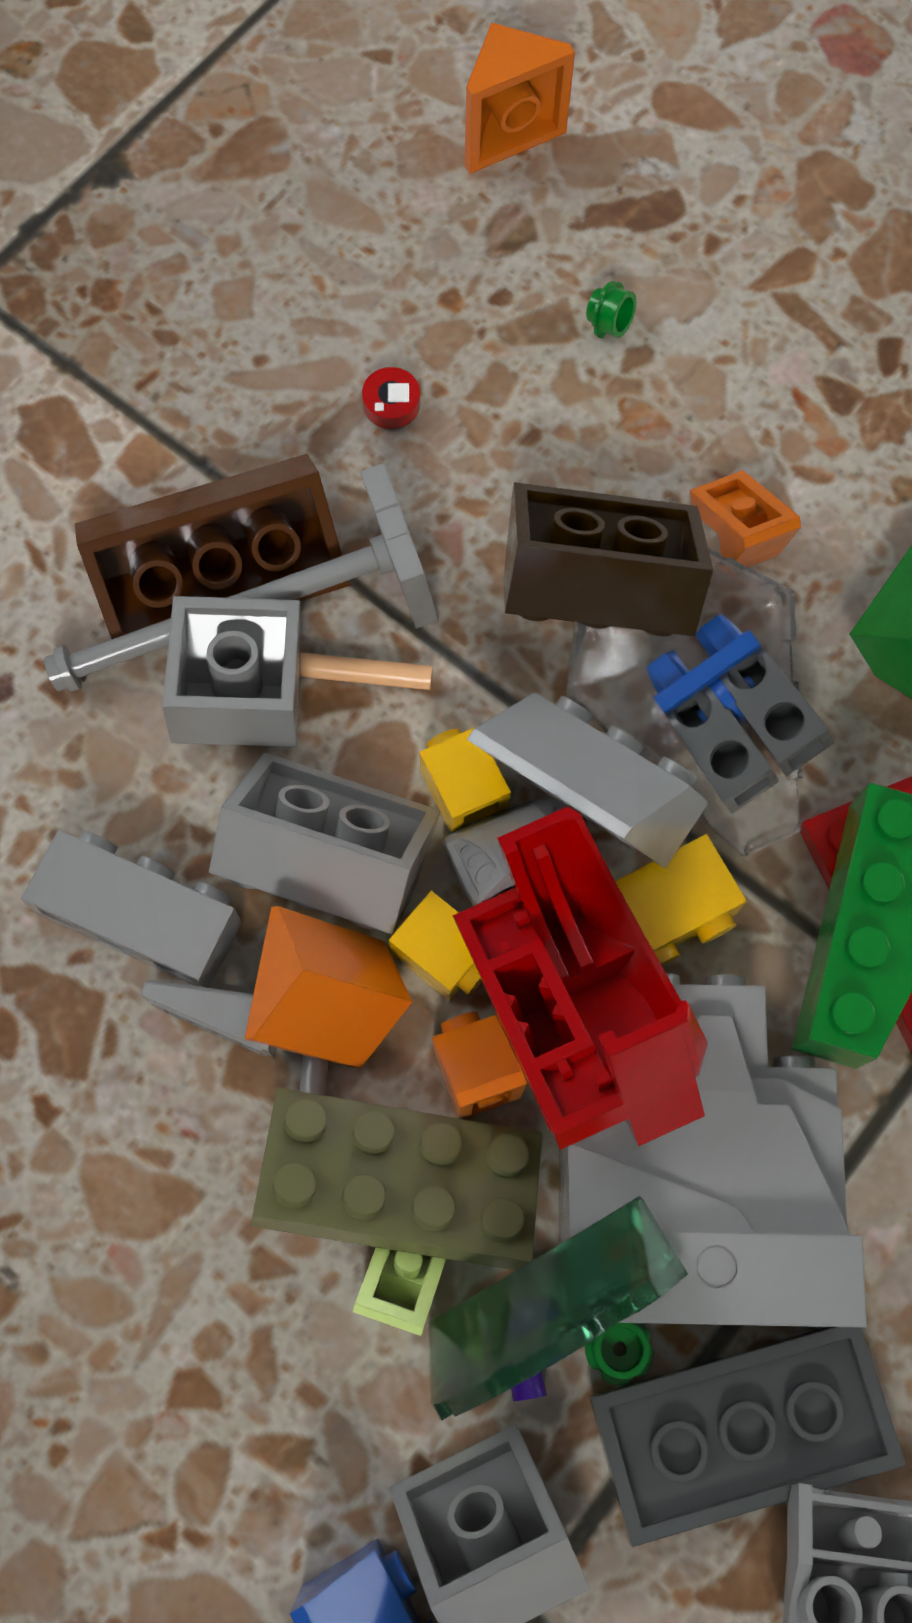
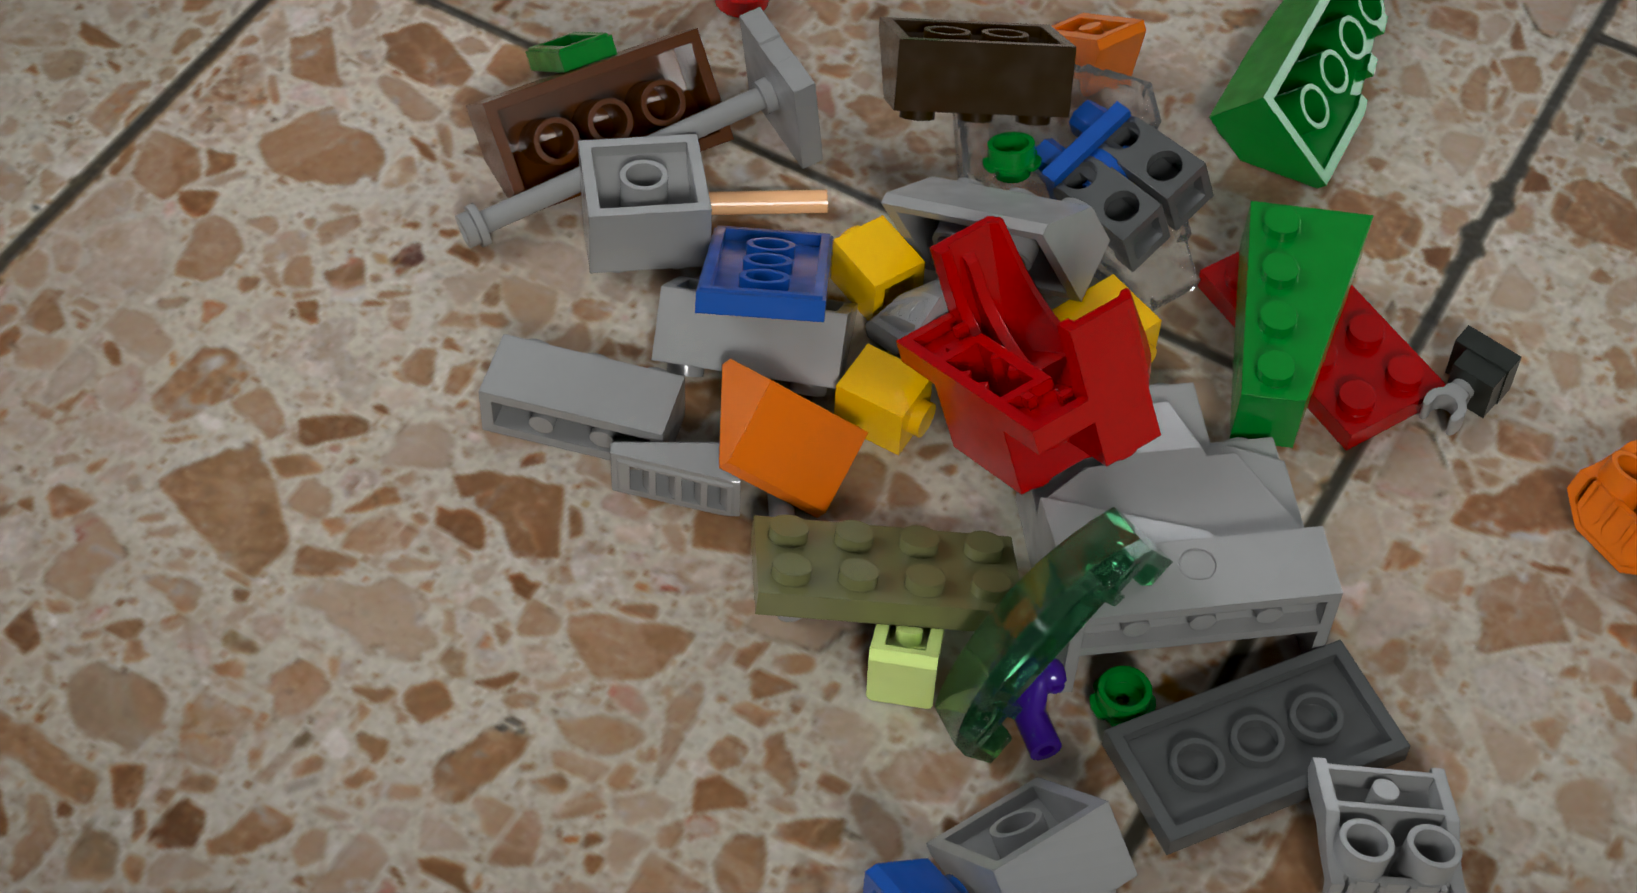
camera: 10 degrees left, 20 degrees down
(192, 470) = (571, 51): none -> green tile
(335, 801) = (766, 274): none -> blue tile
(477, 1064) = (943, 481): orange slope -> none
(626, 671) = (1011, 157): none -> green plate

